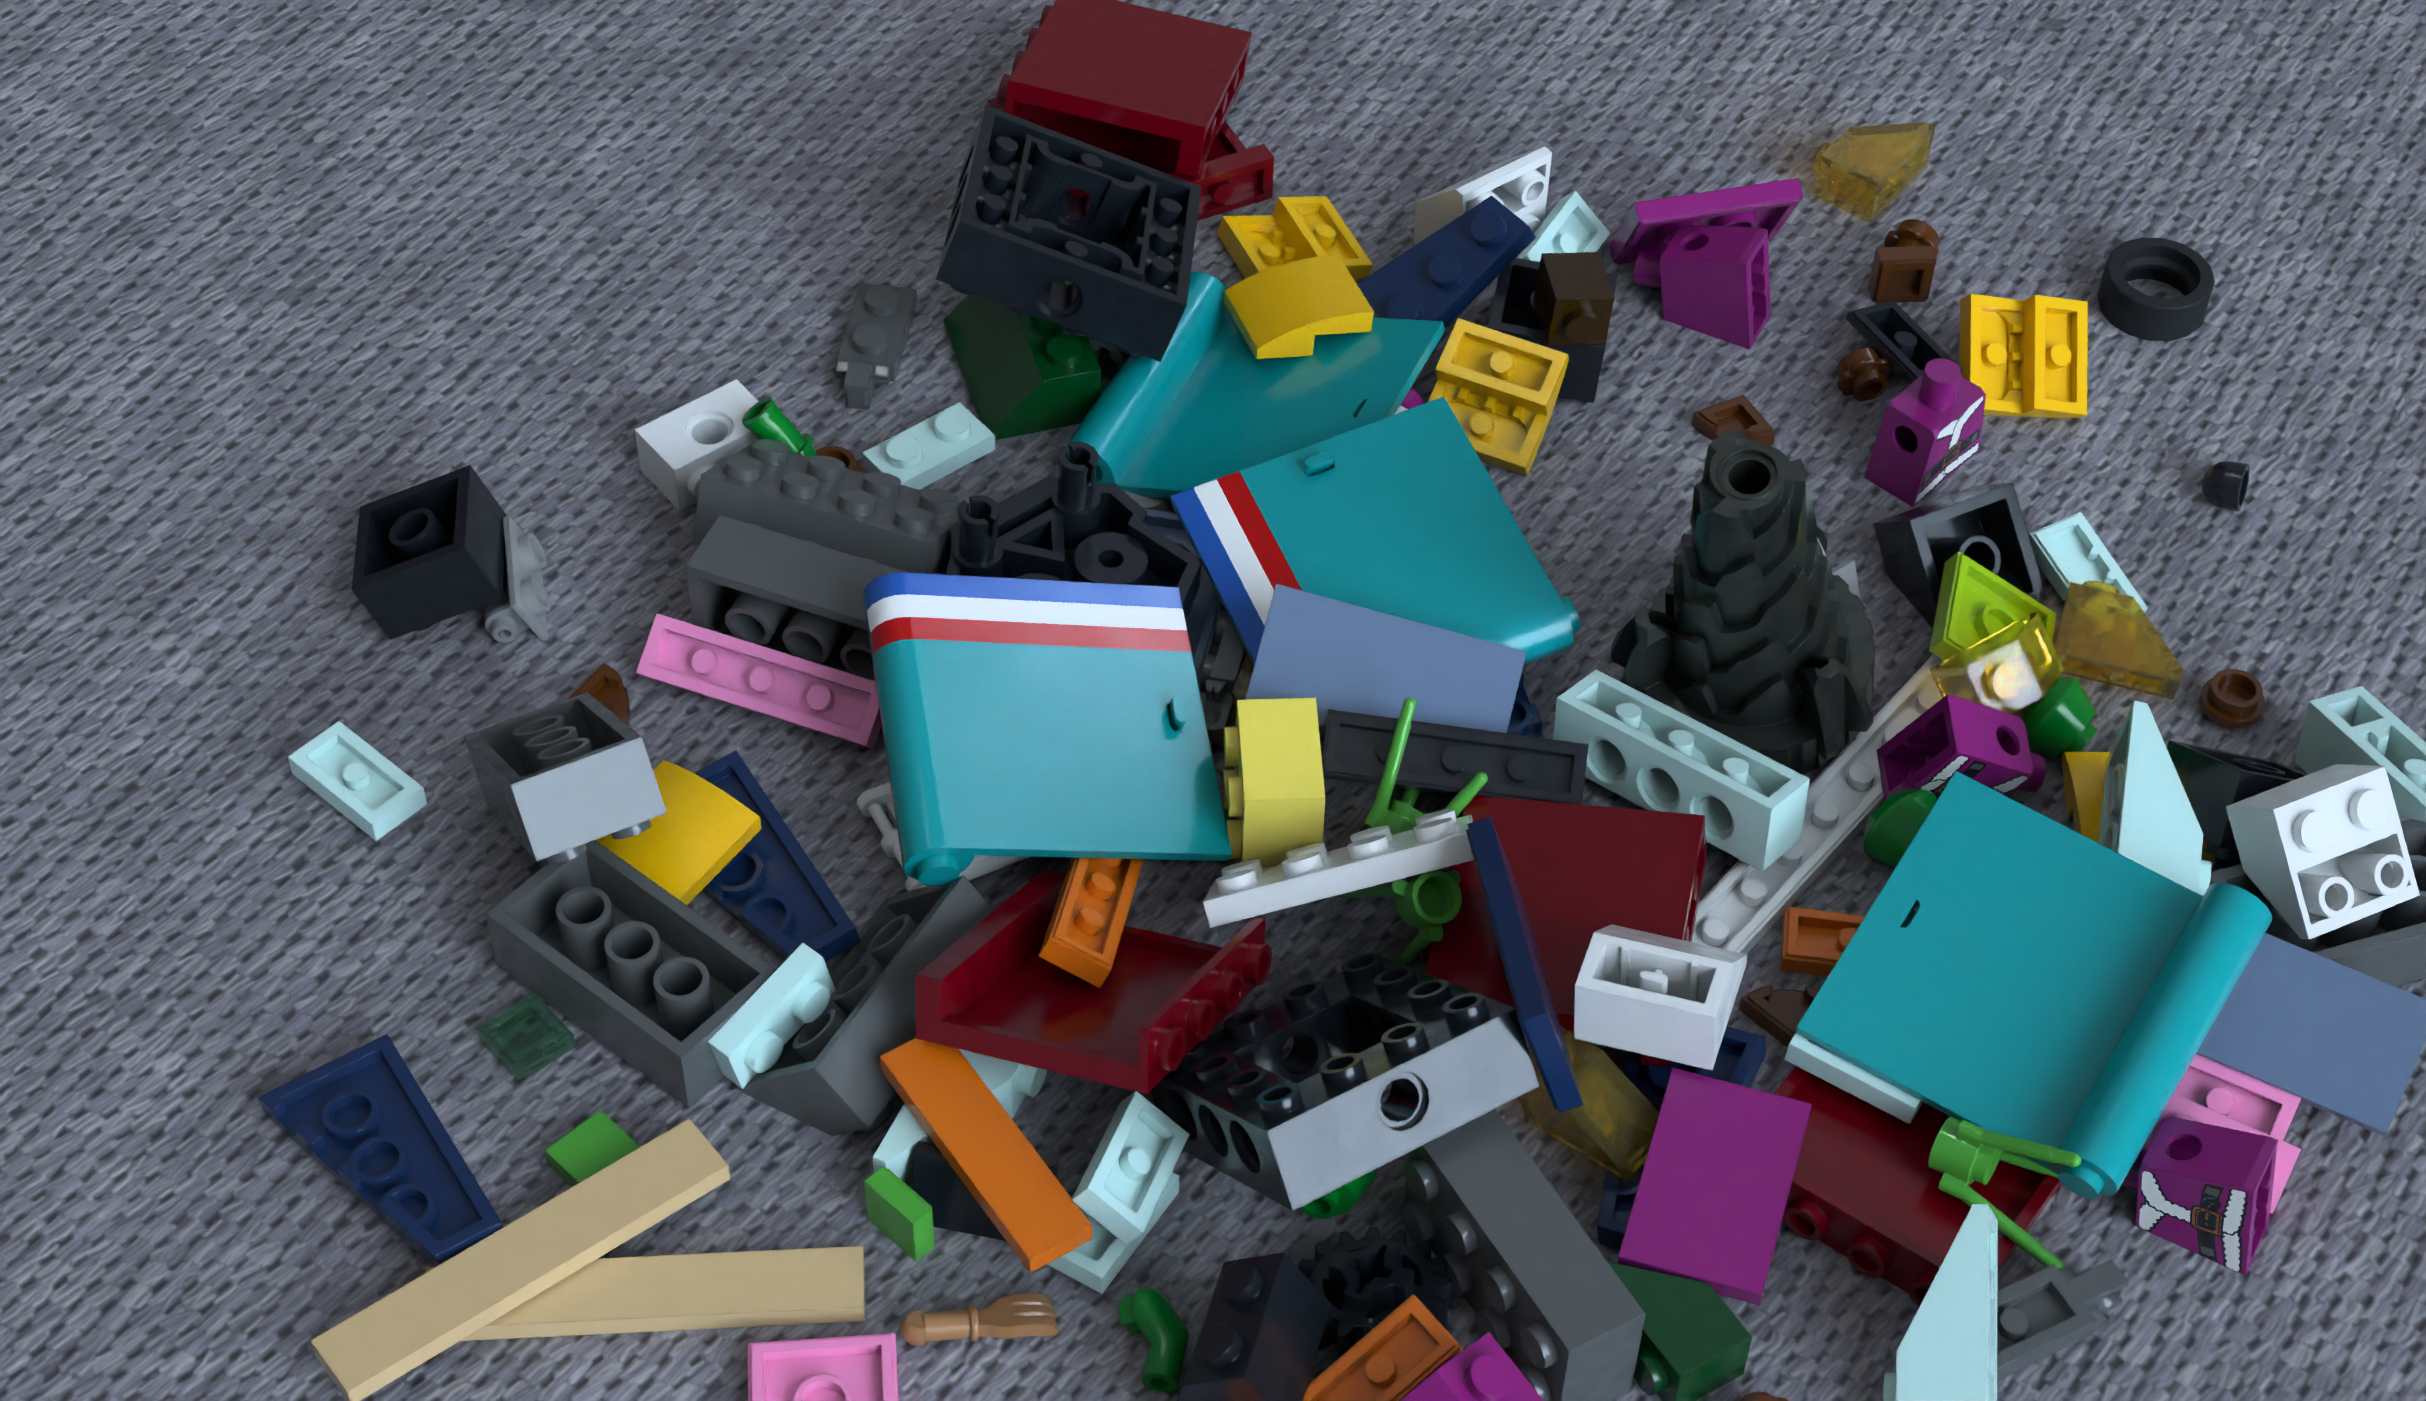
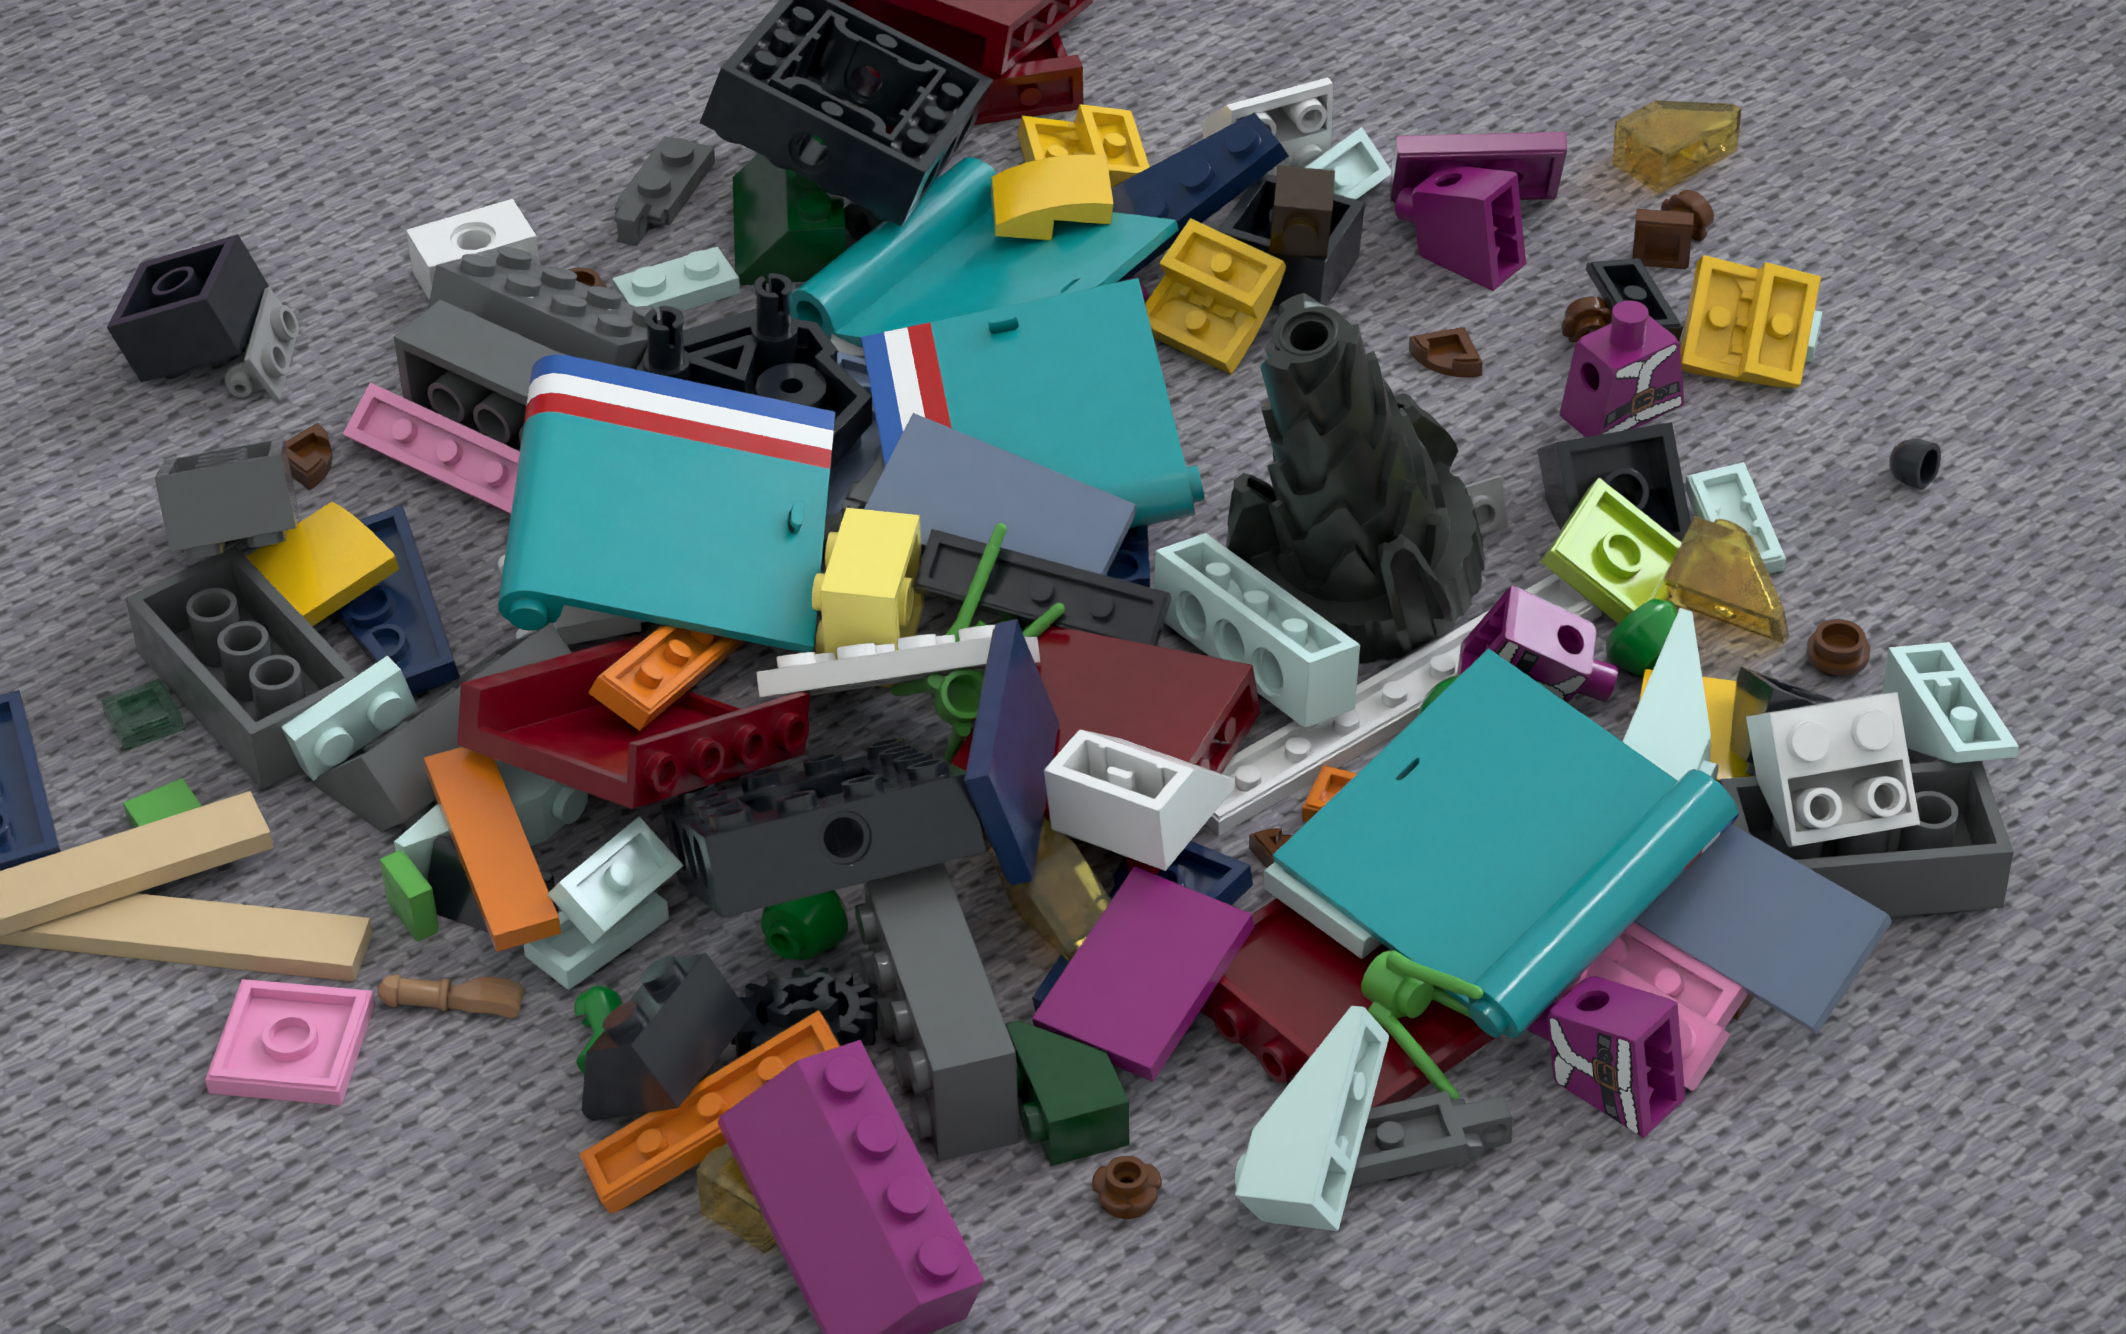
camera: 15 degrees right, 5 degrees down
(357, 780) = (68, 489): light aqua plate -> none
(769, 422) = (525, 235): green pin -> none
(2003, 669) = (1605, 581): clear yellow slope -> none
(2152, 316) = (1908, 306): black tyre -> none

